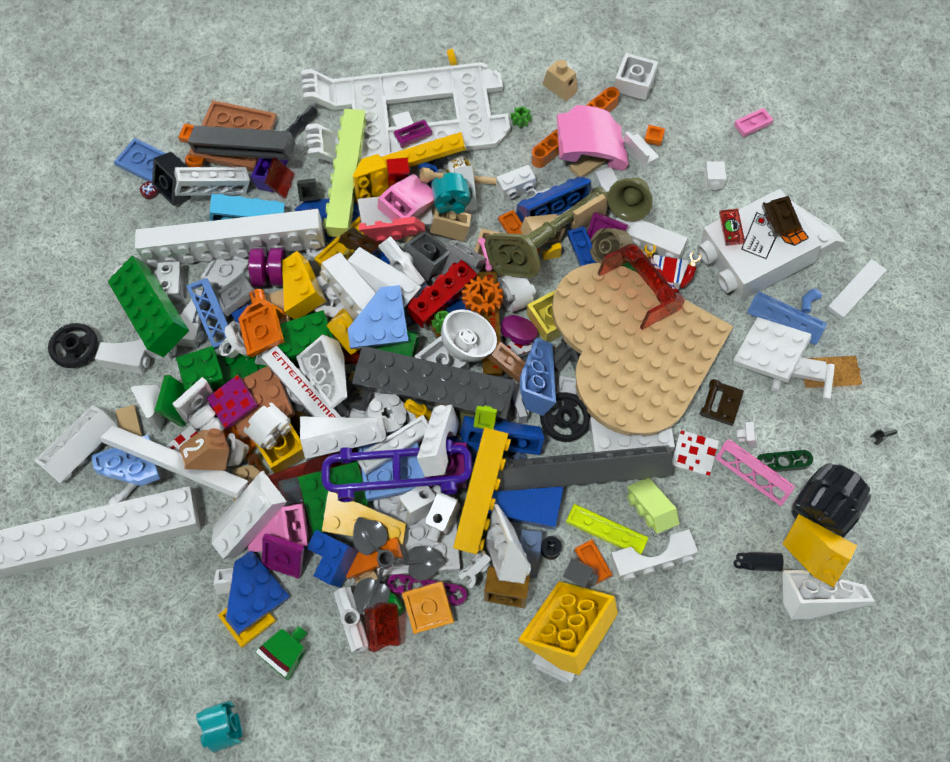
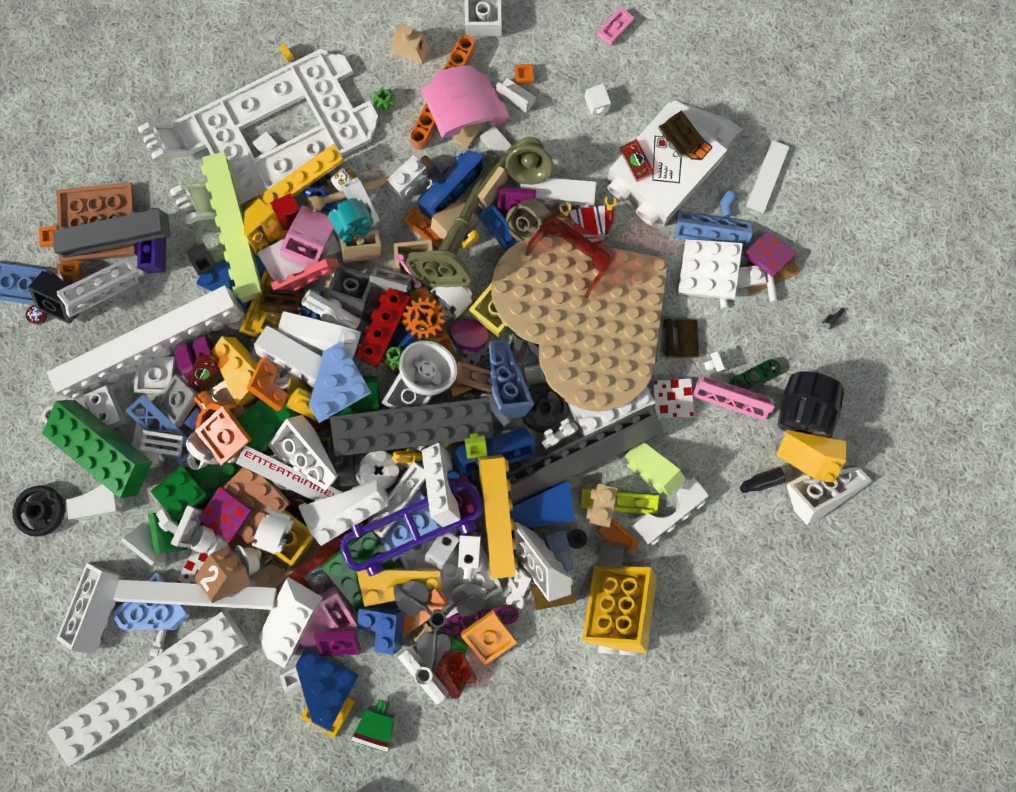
camera: 25 degrees left, 15 degrees up
(129, 420) = (132, 566): tan tile -> none
(177, 386) = (167, 522): none -> white plate
(191, 314) = (144, 440): none -> white tile
(232, 207) = (146, 307): medium azure wedge -> none
(266, 273) = (202, 371): none -> clear red tile
(279, 177) = (166, 256): clear red piece -> none
(302, 120) = (160, 183): black pin -> none
(314, 300) = (262, 384): none -> orange plate
(413, 135) = (284, 159): magenta tile -> none
(541, 182) = (432, 169): none -> black tile
(576, 446) = (565, 431): none -> white plate
(588, 522) = (602, 506): none -> tan brick
(836, 355) = (770, 254): none -> magenta tile

